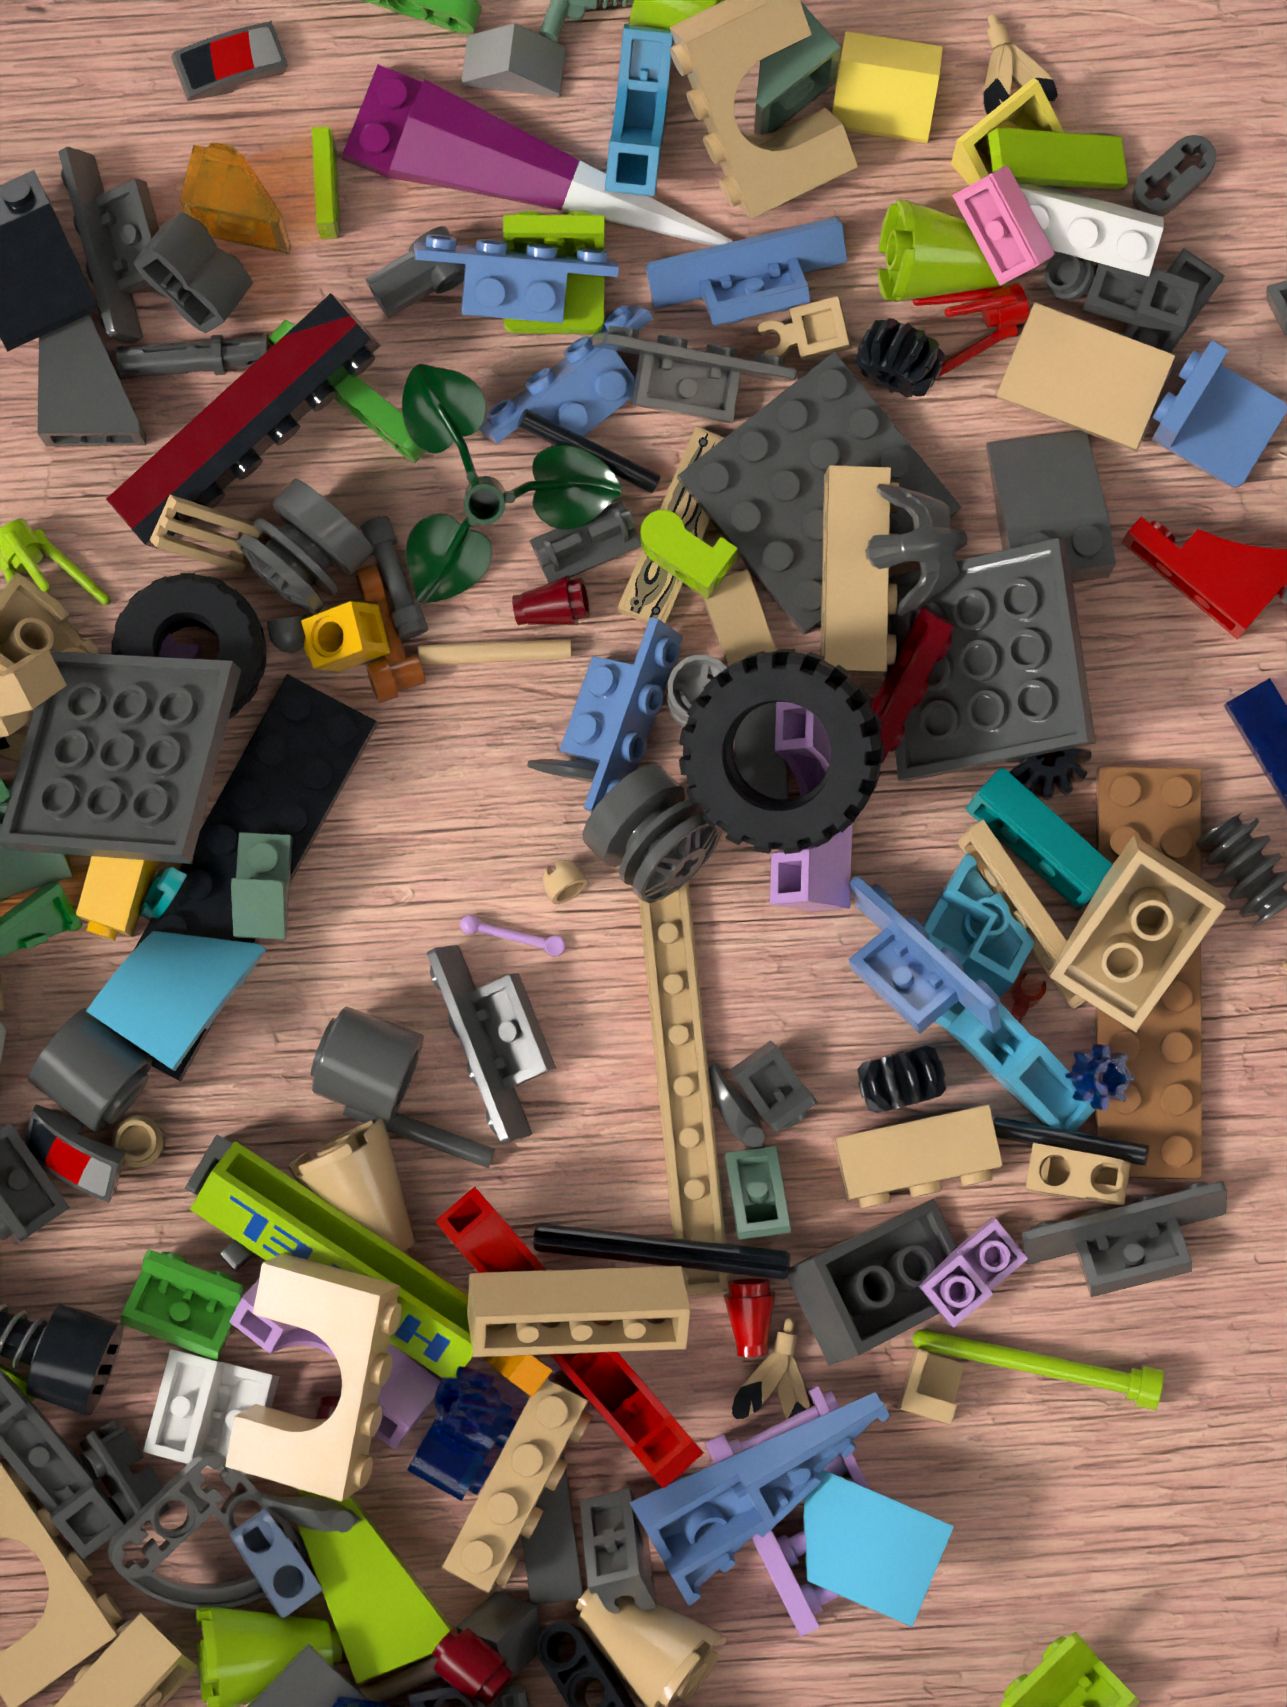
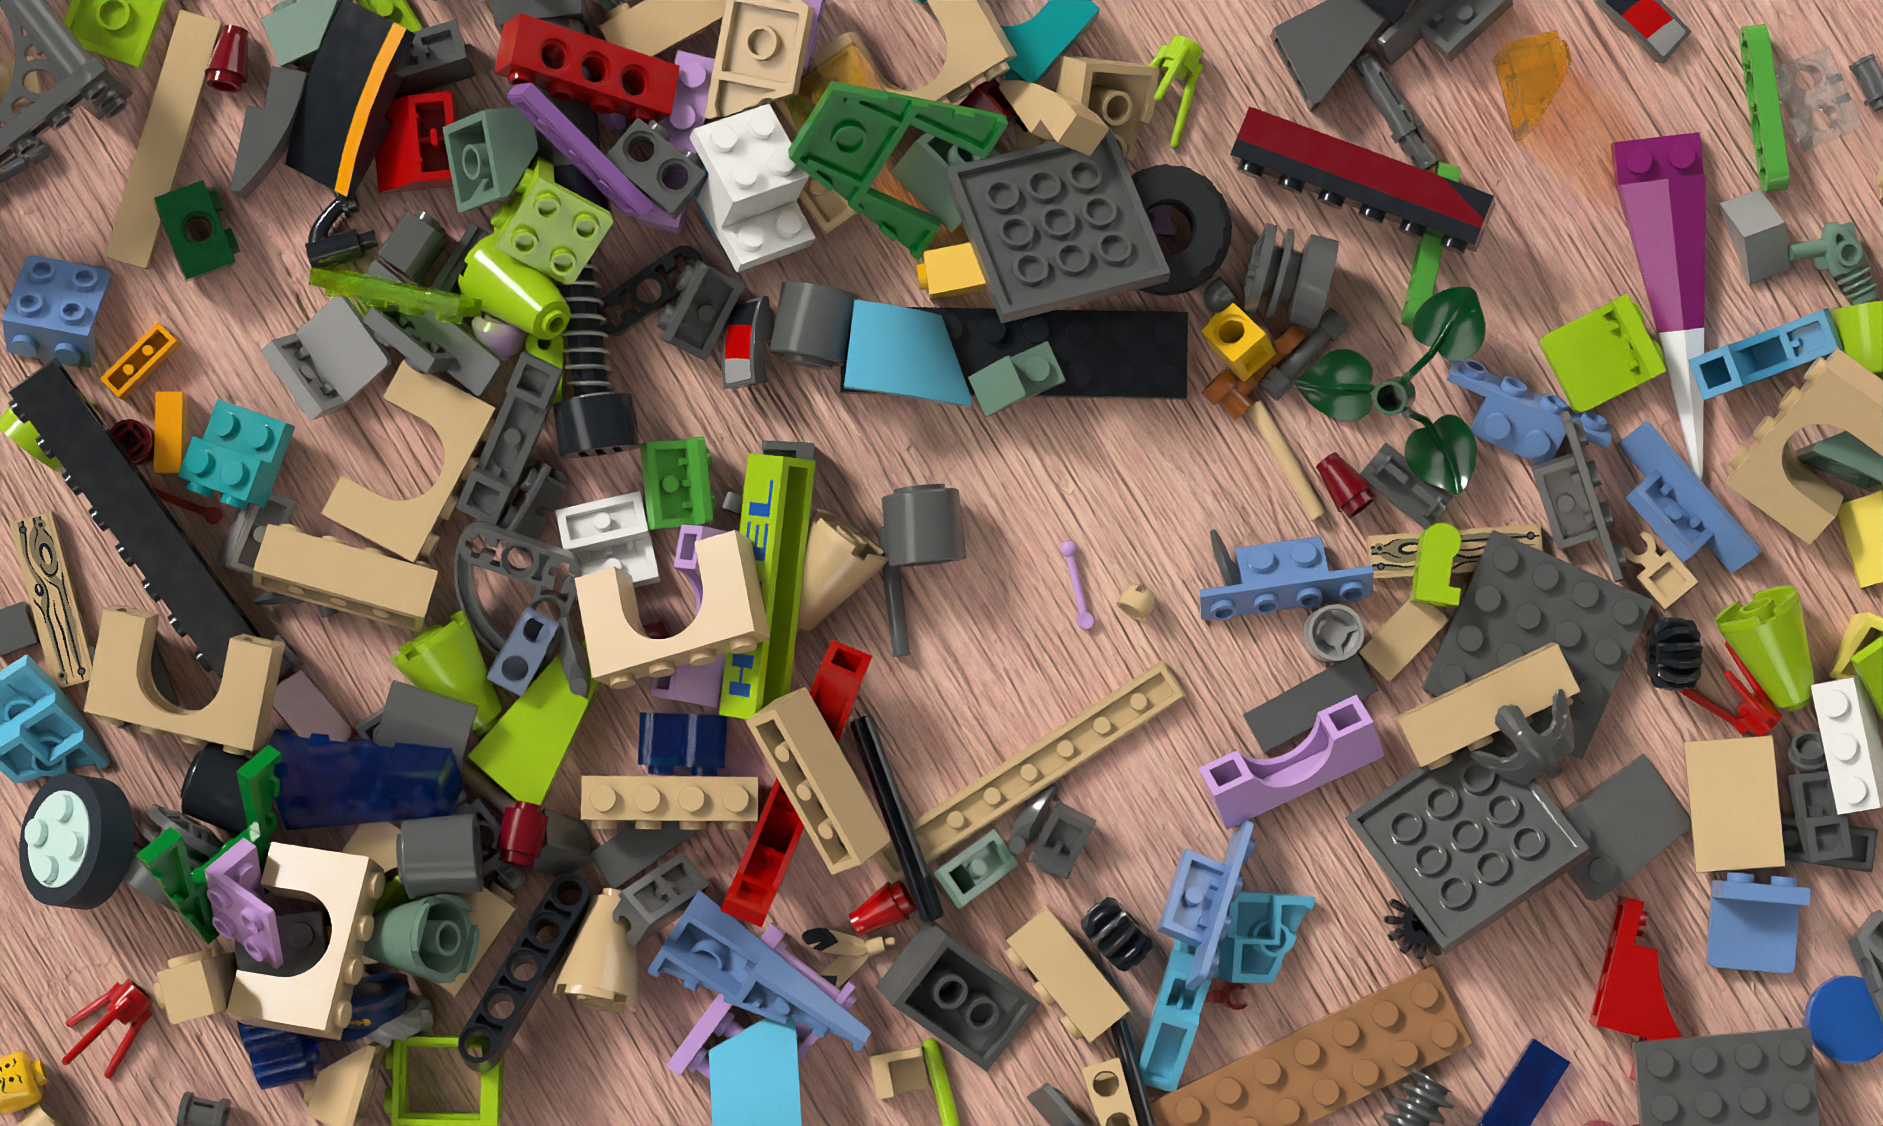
camera: 55 degrees right, 5 degrees up
(140, 1140) = (782, 386): tan plate -> none
(161, 892) = (980, 305): teal tile -> none
(193, 272) = (1460, 79): dark grey brick -> none
(230, 561) = (1245, 197): tan tile -> none
(325, 182) = (1584, 141): lime tile -> none
(410, 279) = (1560, 255): dark grey piece -> none
(467, 1401) = (712, 732): clear blue gear -> none
(497, 1037) = (994, 613): dark grey bracket -> none
(514, 281) = (1580, 328): medium blue bracket -> none
(522, 1370) = (754, 763): light orange piece -> none
(618, 464) = (1477, 424): black bar -> none
(650, 833) = (1205, 651): dark grey wheel -> none
(738, 806) = (1258, 729): black tyre -> none
(907, 678) = (1418, 785): dark red plate -> none
(972, 1271) = (999, 1059): lavender slope -> none
(1003, 225) = (1818, 682): bright pink slope -> none
(1023, 904) = (1294, 964): tan tile -> none
(1039, 838) = (1354, 948): teal slope -> none
(1086, 1072) = (1206, 1083): clear blue gear -> none
(1137, 933) = (1317, 1057): tan slope -> none

